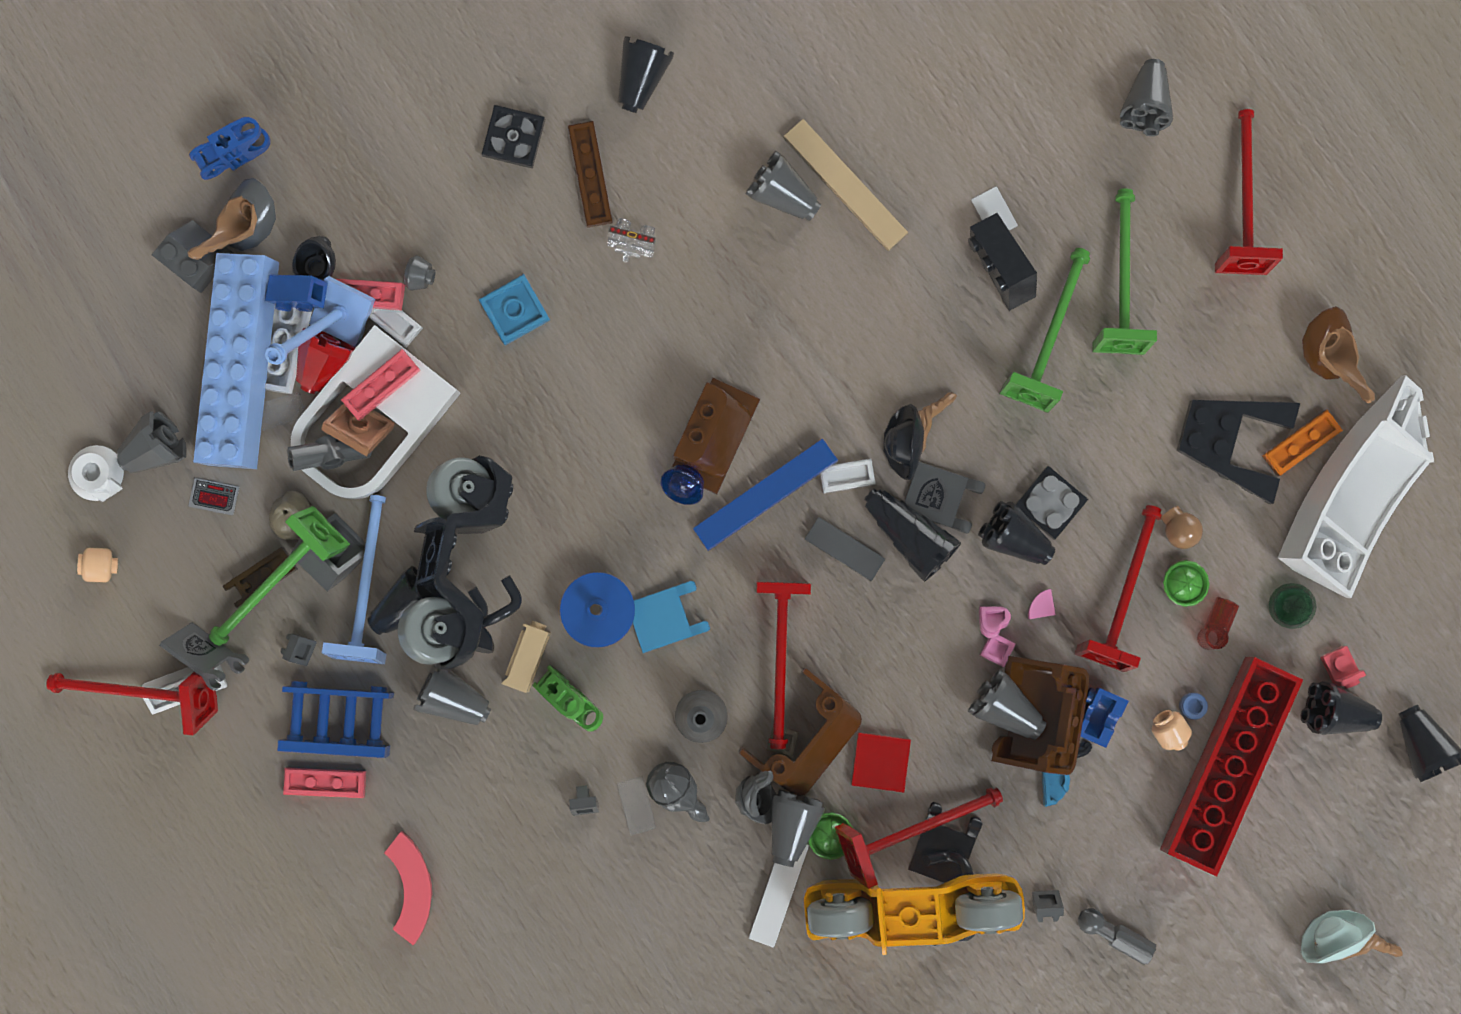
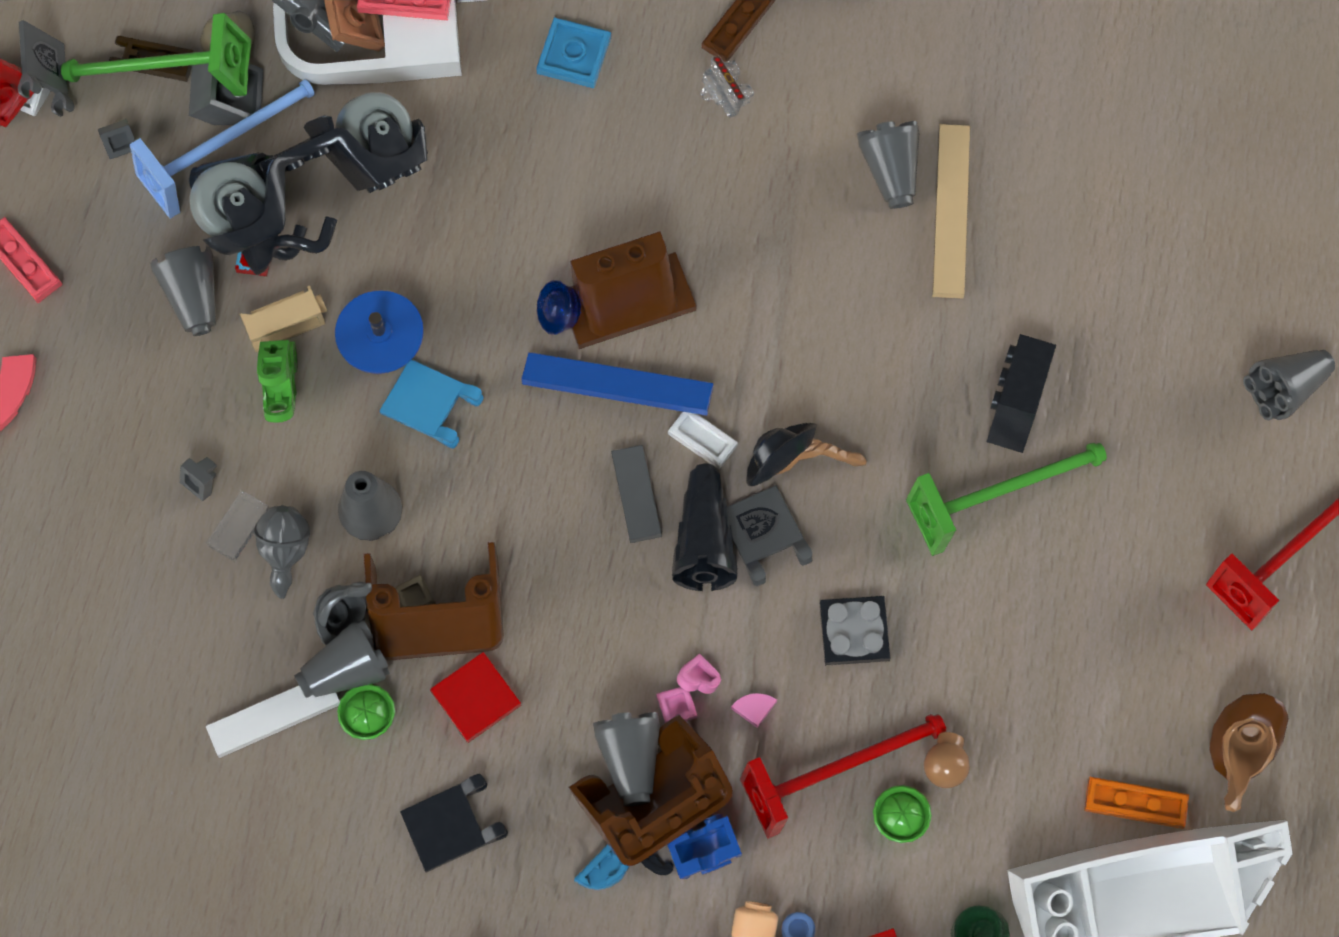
camera: 50 degrees right, 15 degrees down
(321, 743) = (71, 246): blue fence -> none
(782, 593) = (544, 468): red tile -> none
(858, 854) = (373, 740): red tile -> none
(916, 914) = (367, 832): piece -> none
(991, 203) = (1065, 352): white sticker -> none
(1016, 535) = (793, 623): black cone -> none
(1123, 339) = (1061, 551): bright green tile -> none
(1212, 432) = (1063, 712): black wing -> none
(1220, 622) = (896, 877): clear red piece -> none

